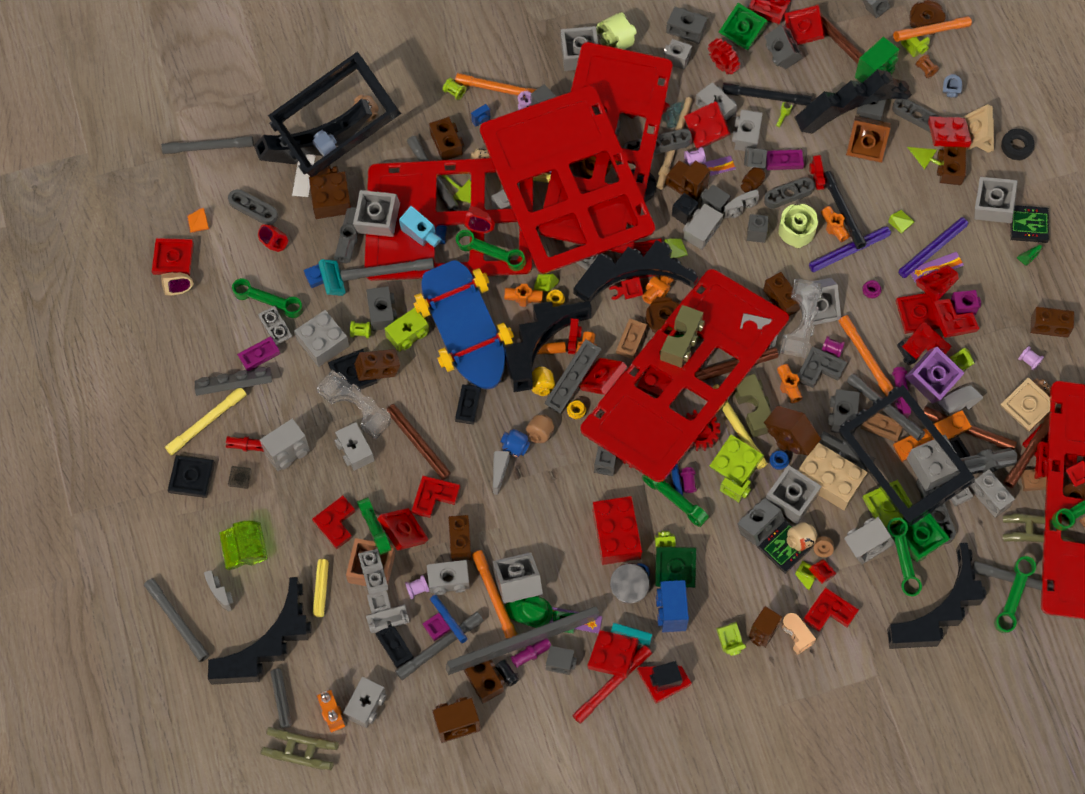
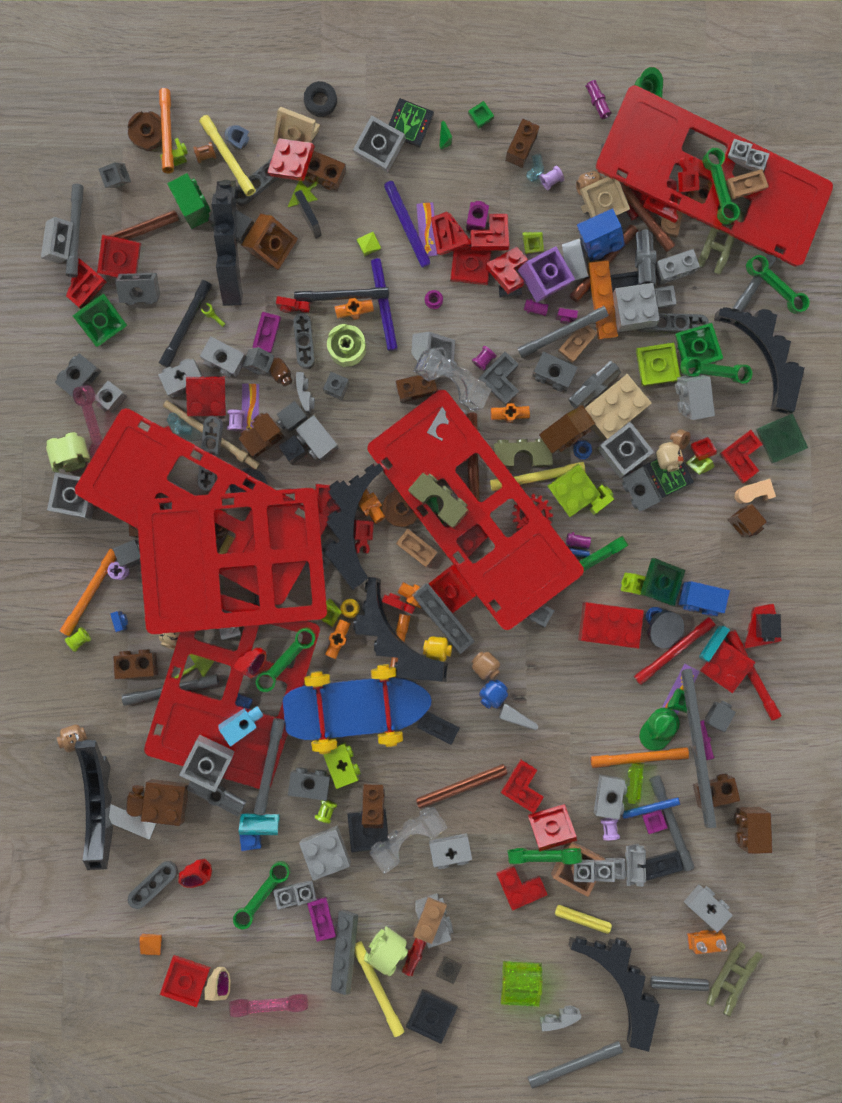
camera: 75 degrees left, 20 degrees up
(167, 330) = (293, 1003): none -> clear pink piece
(238, 142) = (56, 945): dark grey piece -> none
(245, 413) = (386, 951): none -> yellowish green brick
(286, 431) = (429, 920): none -> medium nougat plate
(316, 89) = (97, 834): black window -> none
(324, 142) = (118, 801): sand blue plate -> none
(459, 538) = (575, 775): reddish brown brick -> none
(469, 598) = (634, 790): none -> clear neon green plate
(507, 673) = (718, 767): black pin -> none
(517, 577) = (634, 734): light grey brick -> none
(576, 405) = (480, 624): yellow plate -> none
(639, 619) = (699, 631): none -> red piece
(668, 32) = (89, 415): none -> clear pink piece
(677, 247) = (330, 473): lime slope -> none
(724, 56) = (131, 352): red gear -> none
(730, 639) = (745, 554): lime bracket -> none
(851, 331) = (533, 324): orange piece -> none
(861, 644) = (782, 438): none -> clear green plate
(905, 159) = (308, 214): none -> black tile
(914, 100) = (242, 179): none -> light yellow piece
(934, 499) = (572, 337): black window -> none
(992, 410) = (601, 235): none -> blue brick
(1026, 341) = (537, 170): none -> clear light blue arm
(1064, 280) = (481, 114): none -> green plate

